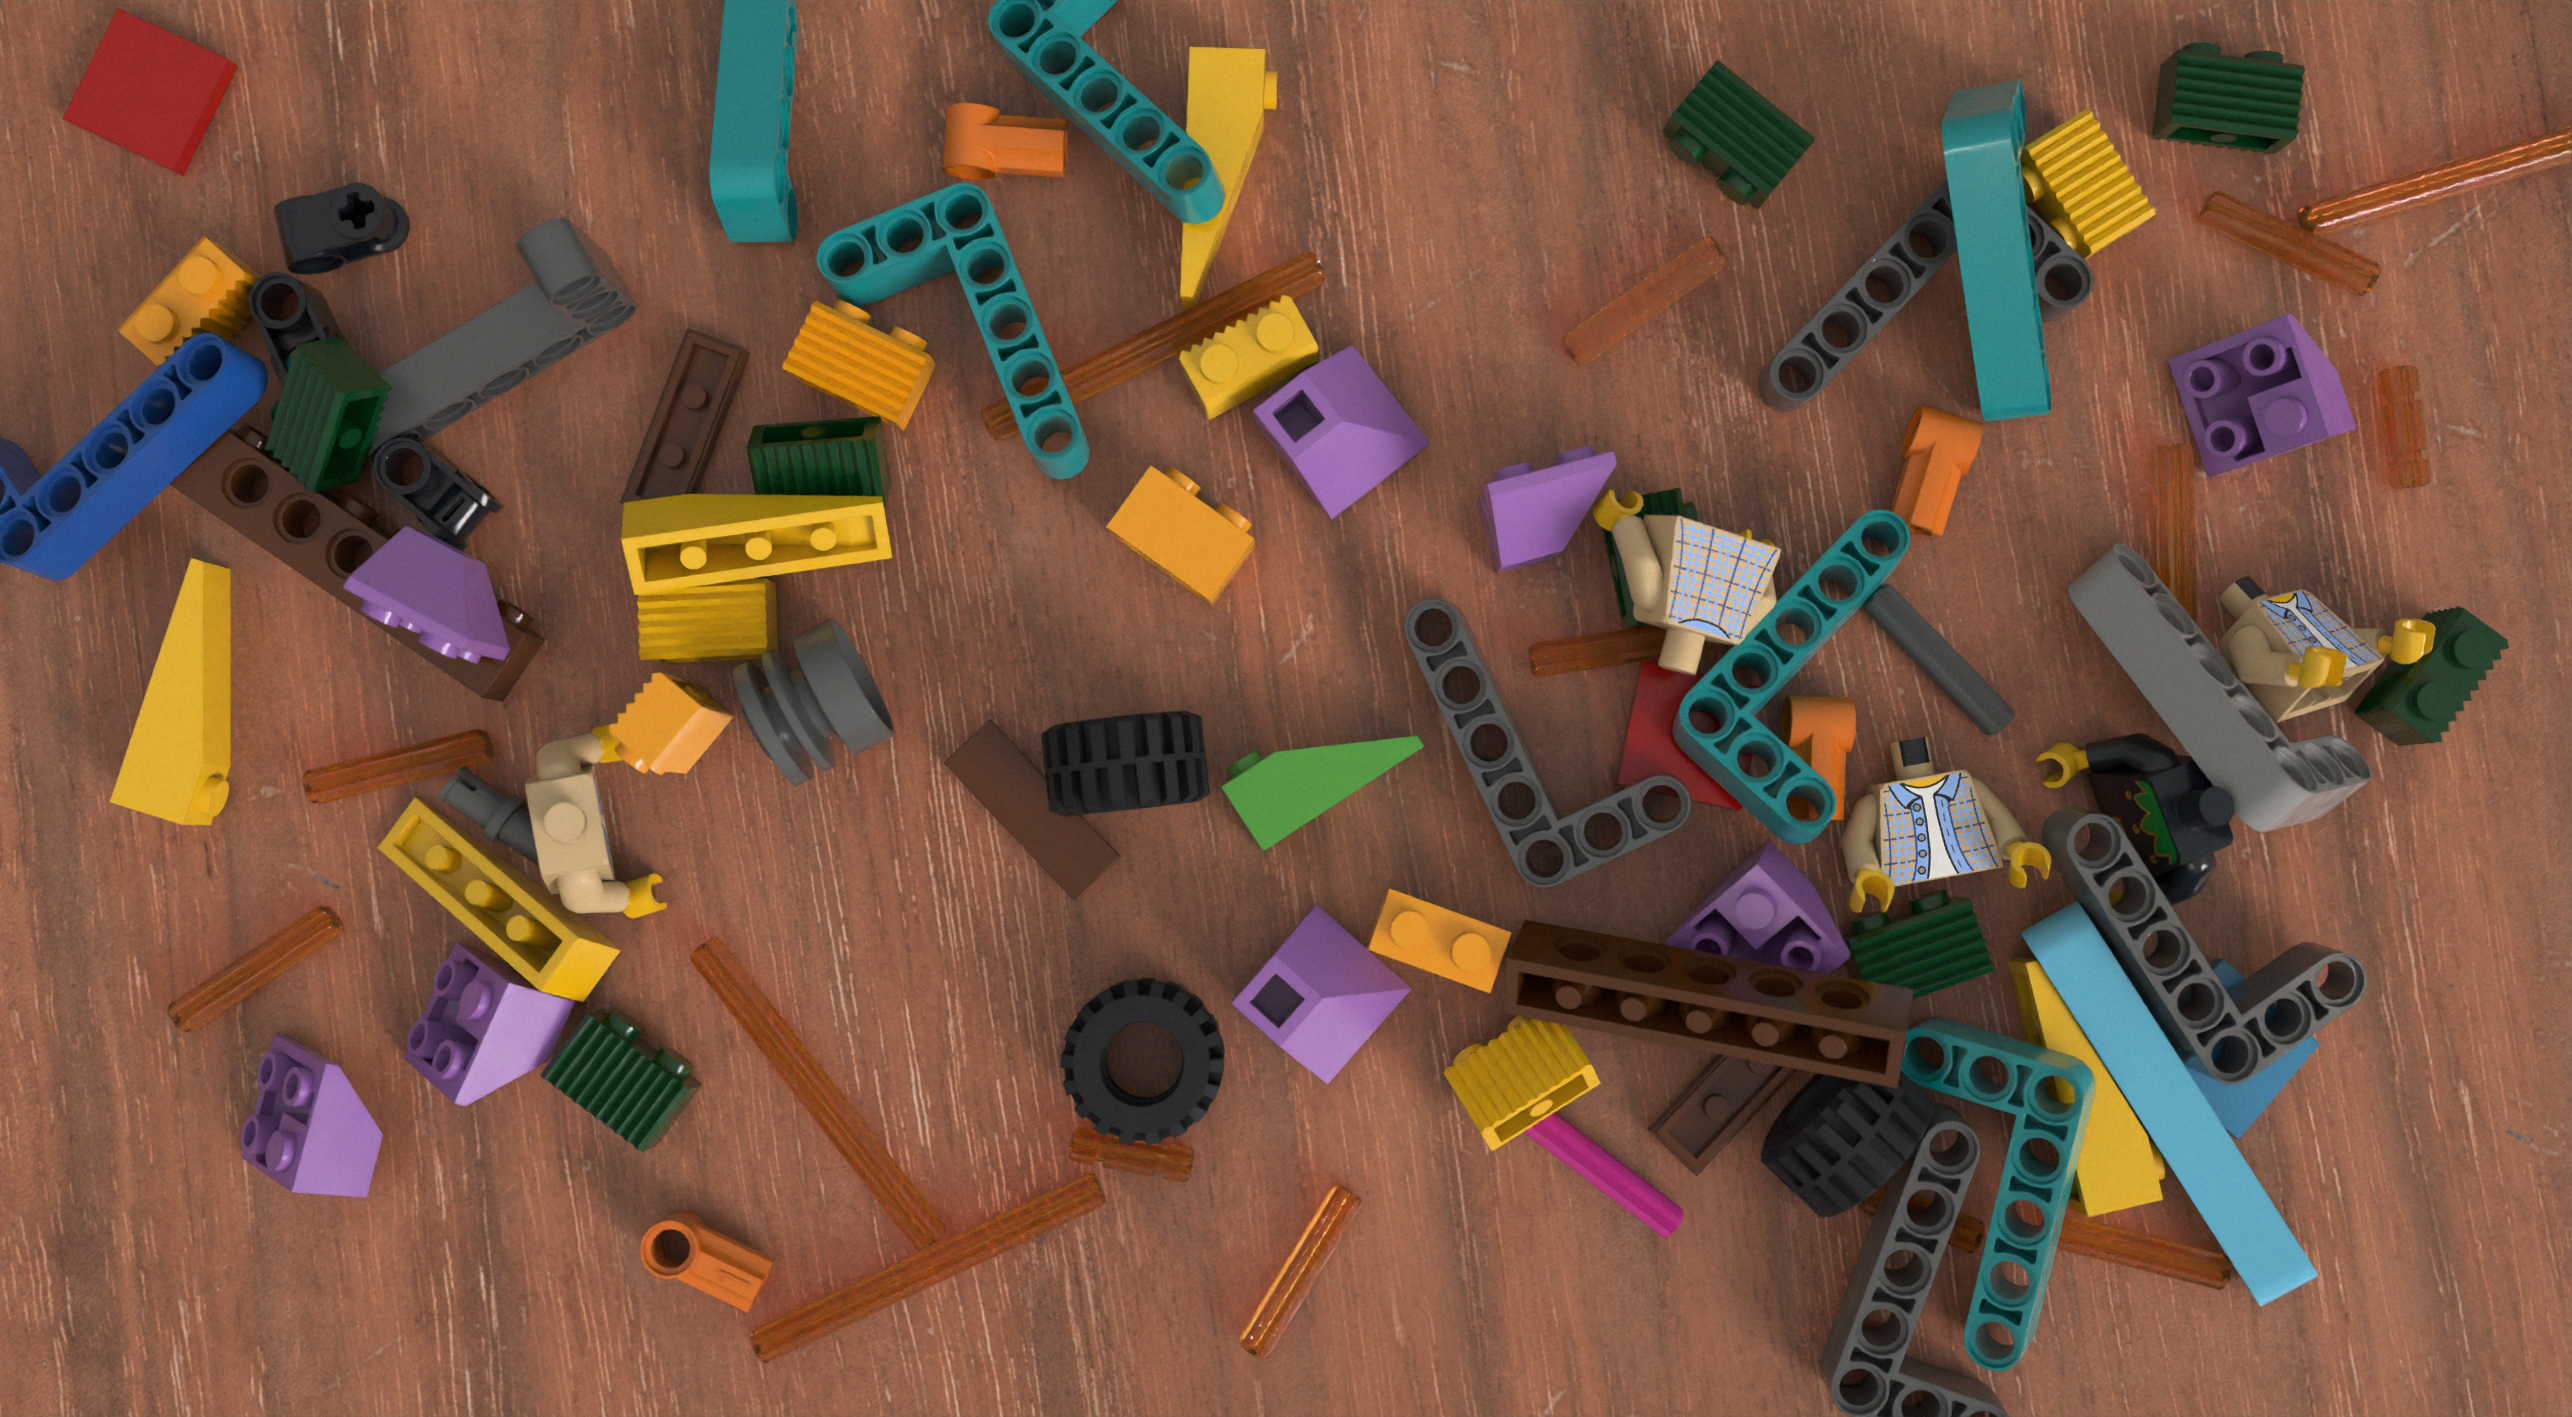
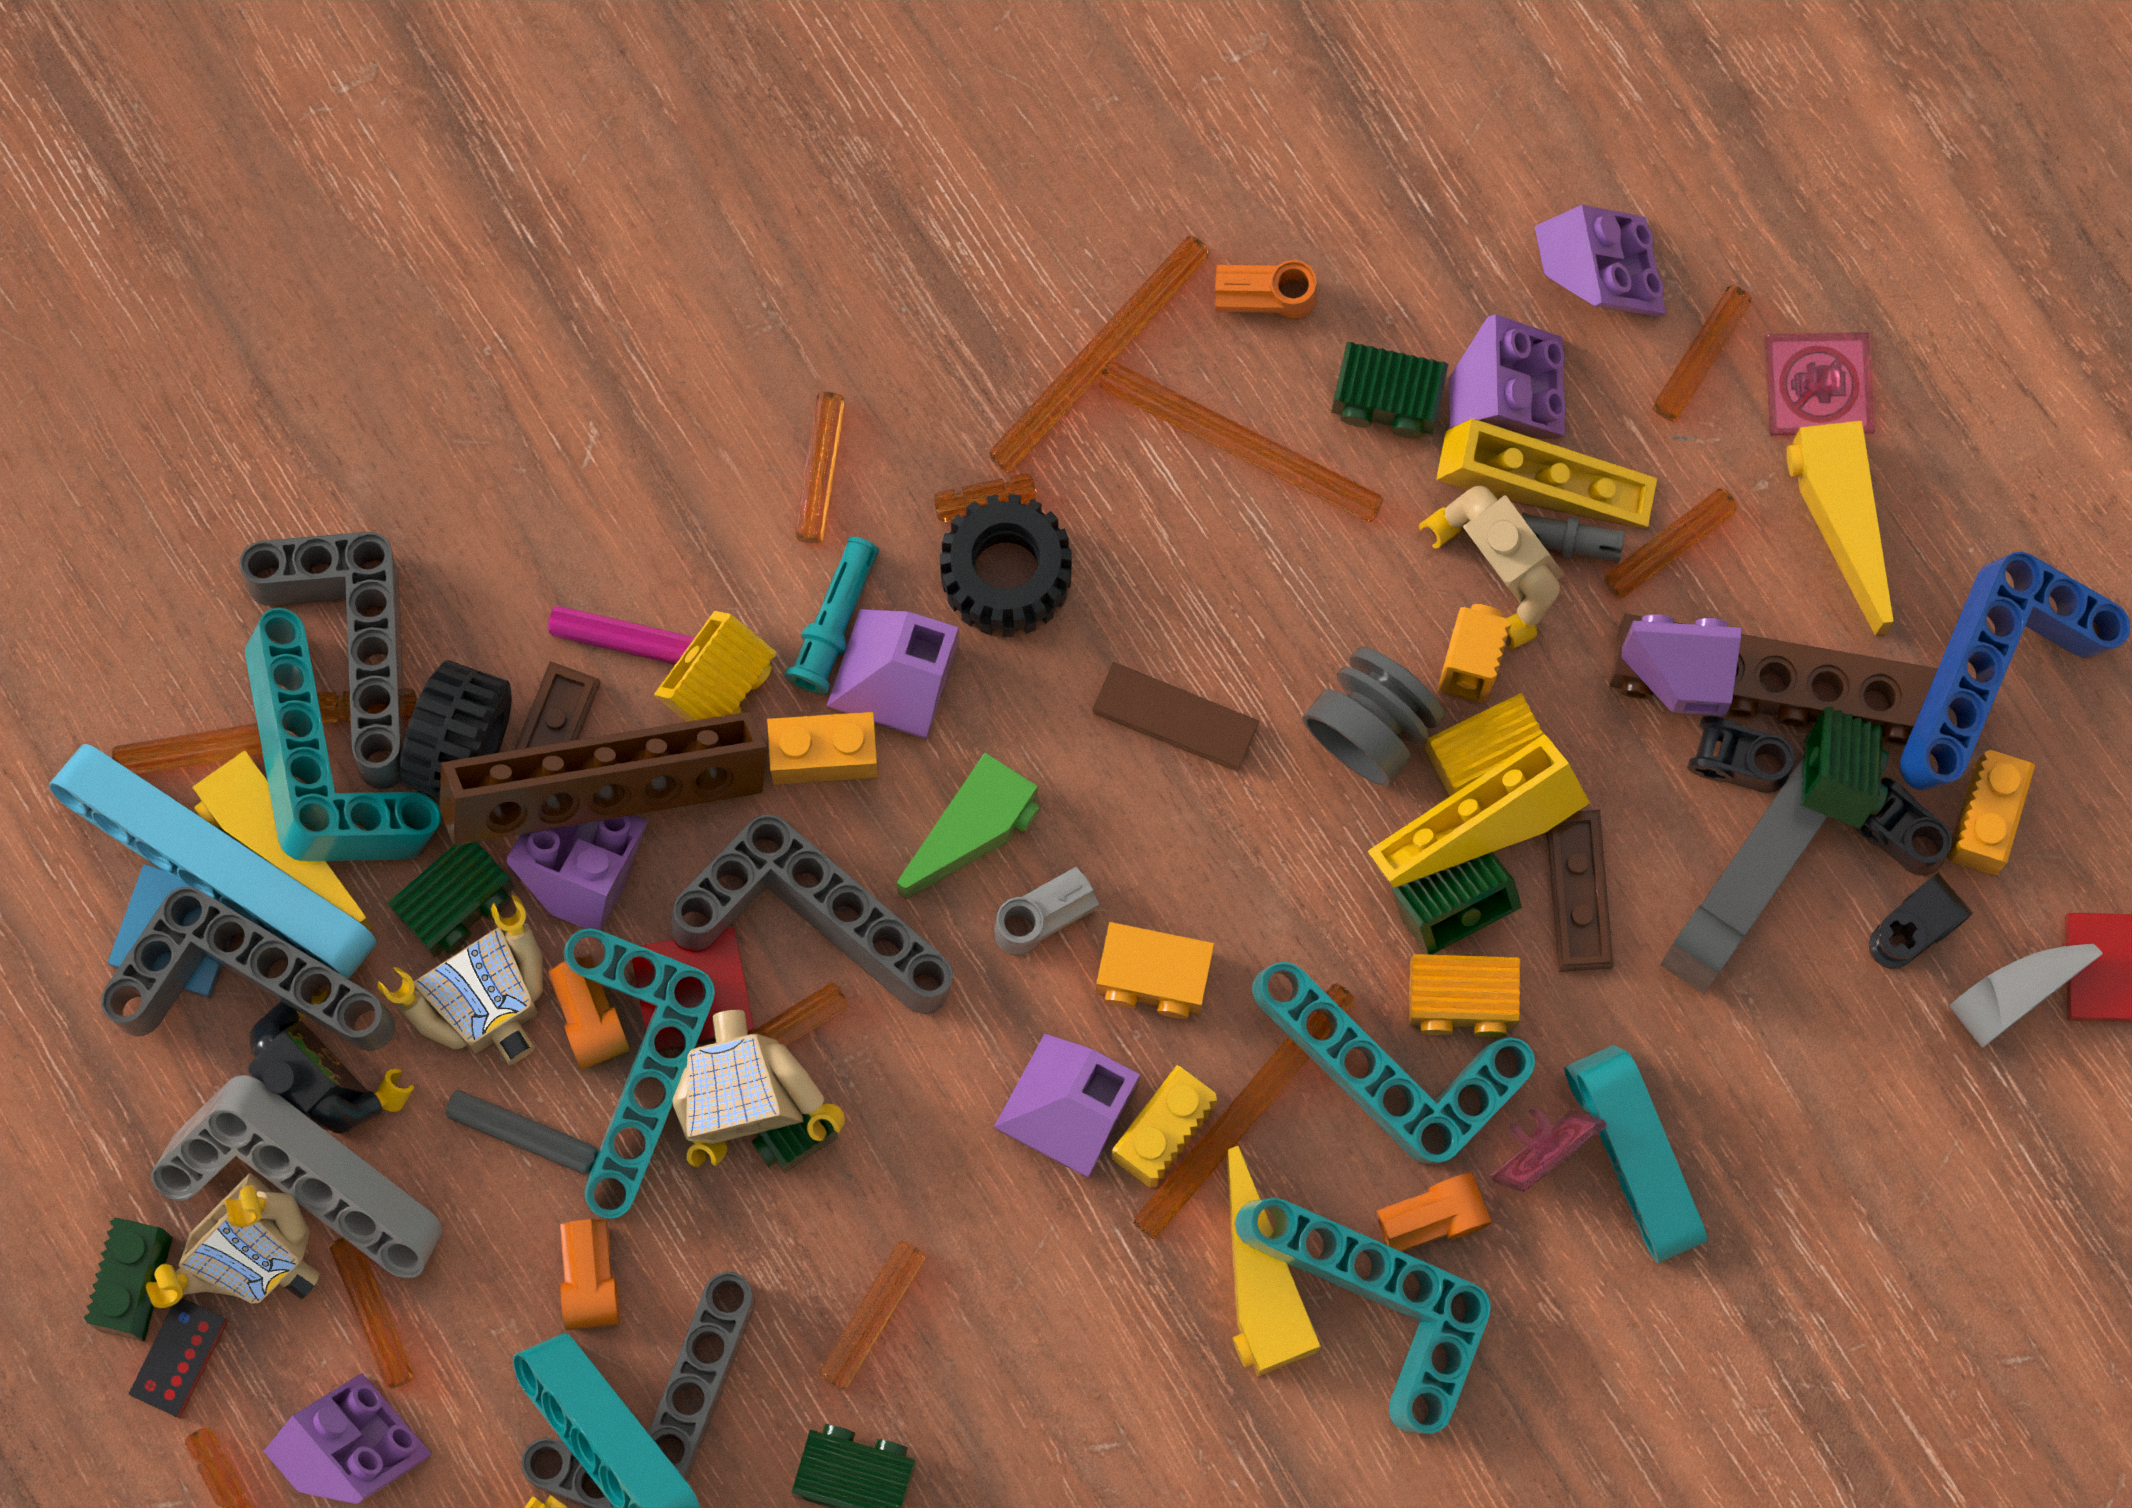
camera: 155 degrees right, 10 degrees down
(146, 879) = (1818, 380): none -> clear pink piece
(271, 104) = (2018, 988): none -> light grey piece
(850, 146) = (1545, 1147): none -> clear pink piece
(1125, 763) = (1117, 768): black tyre -> none
(1266, 652) = (1047, 909): none -> light grey piece
(1379, 1068) = (825, 636): none -> teal pin
(1537, 512) = (882, 1103): medium lavender slope -> none
(2401, 574) = (178, 1357): none -> black tile

